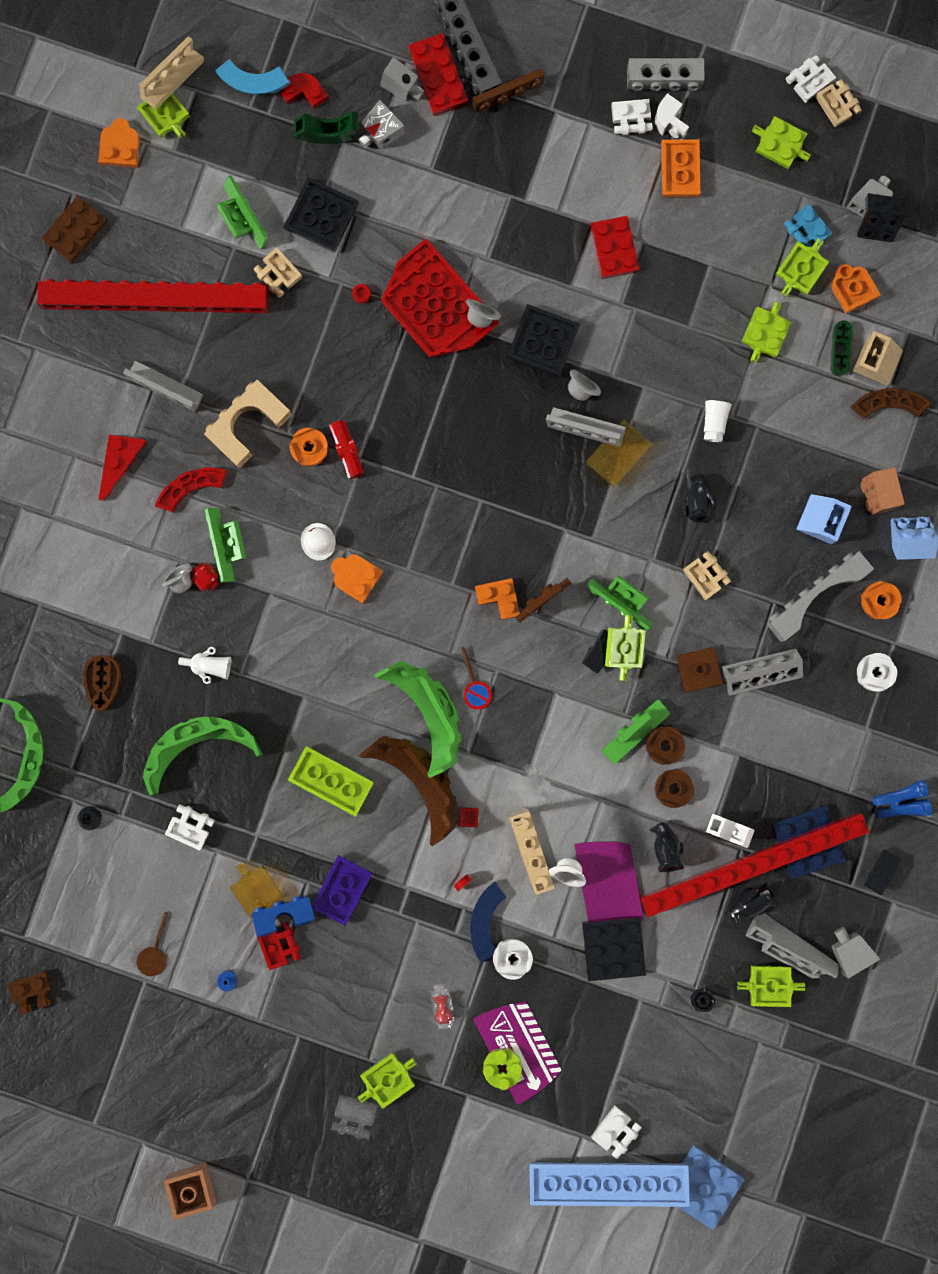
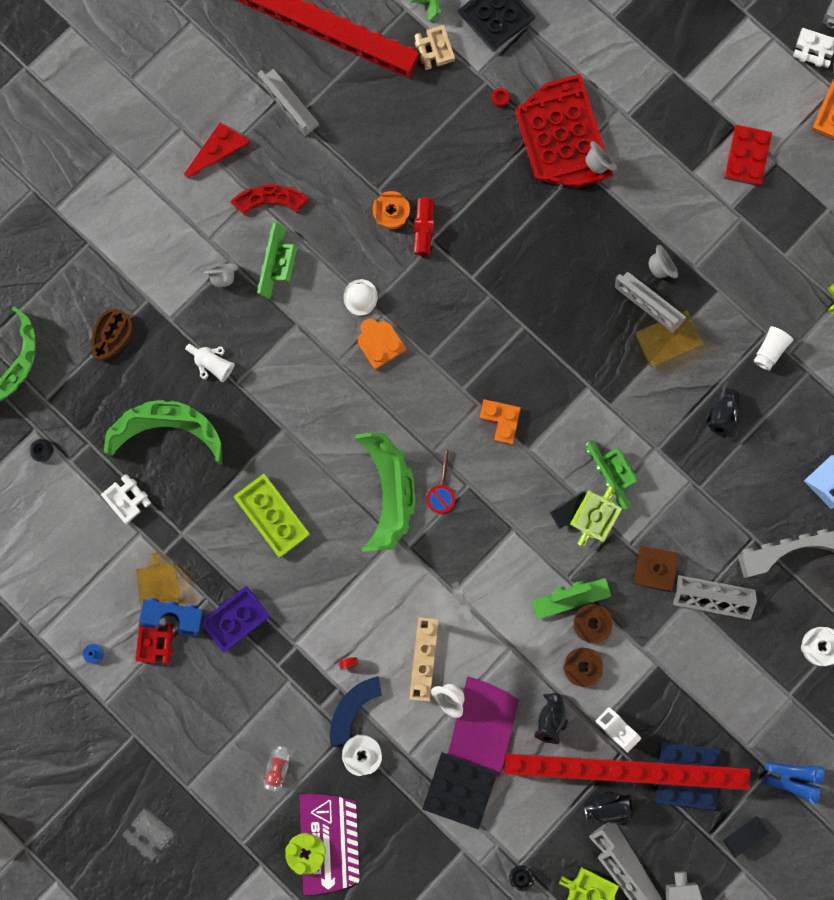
camera: 30 degrees right, 5 degrees down
(151, 959) = (35, 603): reddish brown piece -> none
(205, 577) = (245, 282): red head -> none
(255, 398) = (363, 147): tan arch -> none
(387, 1080) = (194, 814): lime plate -> none
(416, 765) = (354, 535): reddish brown windscreen -> none
(468, 817) = (381, 606): red tile -> none
(543, 340) = (645, 209): black plate -> none
(547, 594) = (533, 438): reddish brown plate -> none
(701, 577) = (696, 487): tan plate -> none

